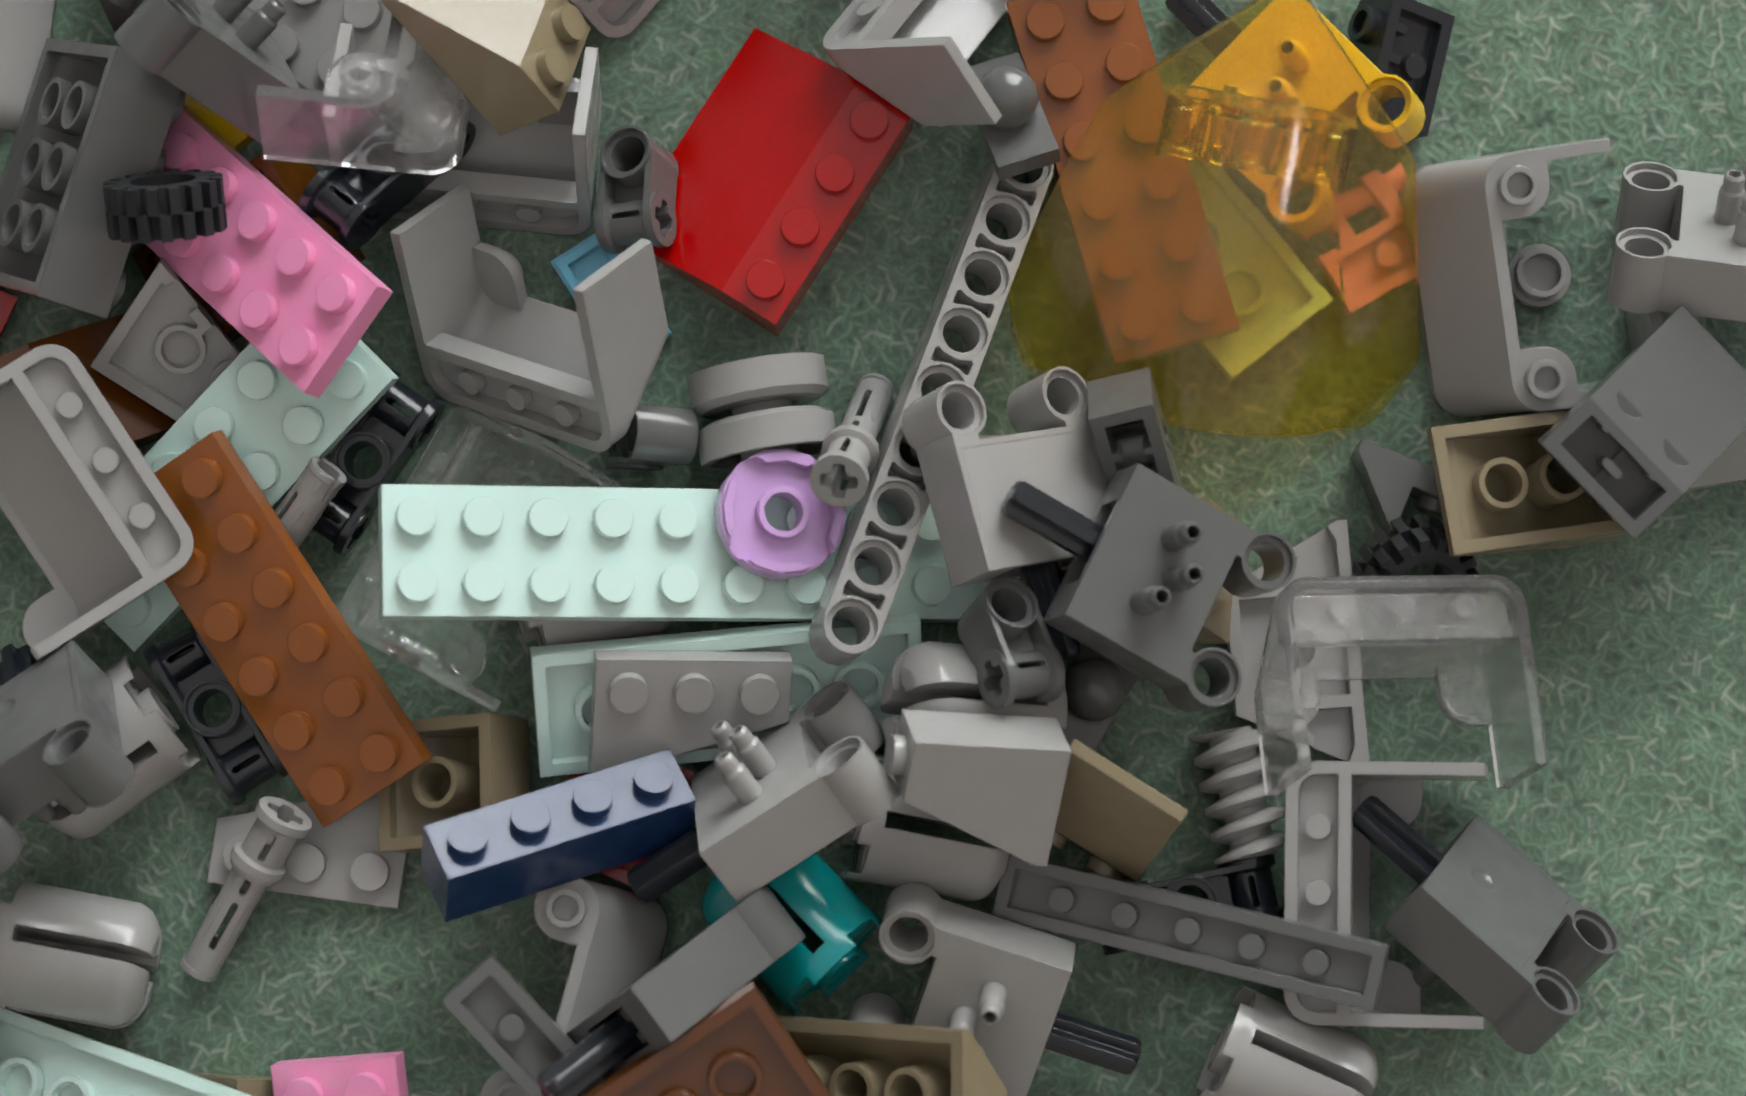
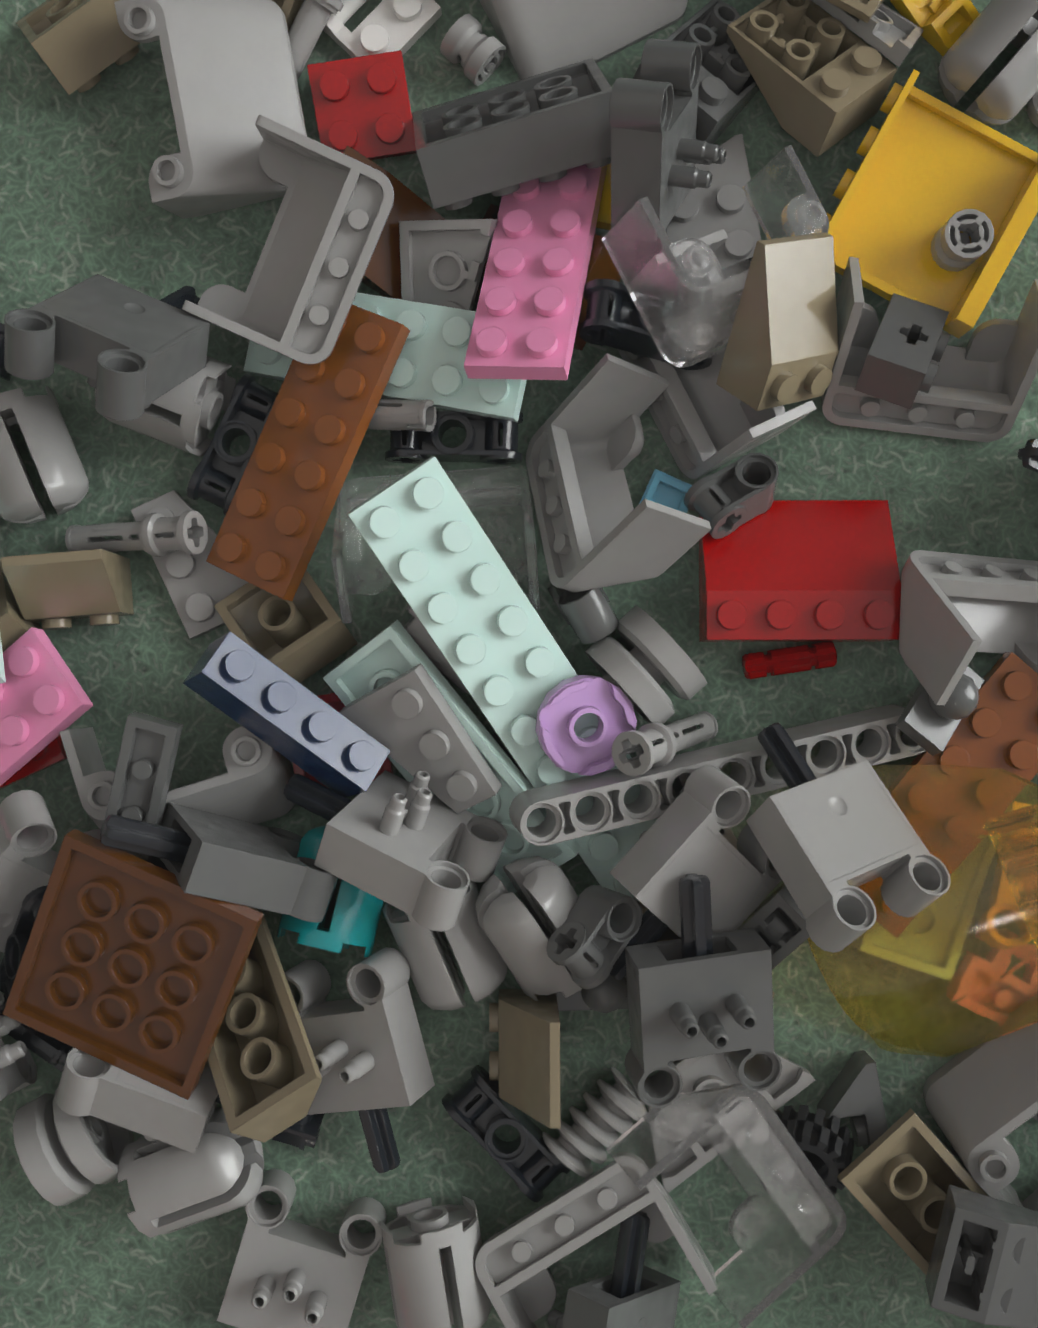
camera: 55 degrees right, 5 degrees up
(165, 205) = (527, 193): black tyre -> none
(253, 999) = (71, 587): none -> dark tan slope
(862, 250) = (789, 660): none -> red axle
(984, 775) = (499, 975): light grey slope -> none
(1069, 317) = (839, 835): none -> light grey piece
(1194, 932) = (489, 1165): dark grey plate -> none

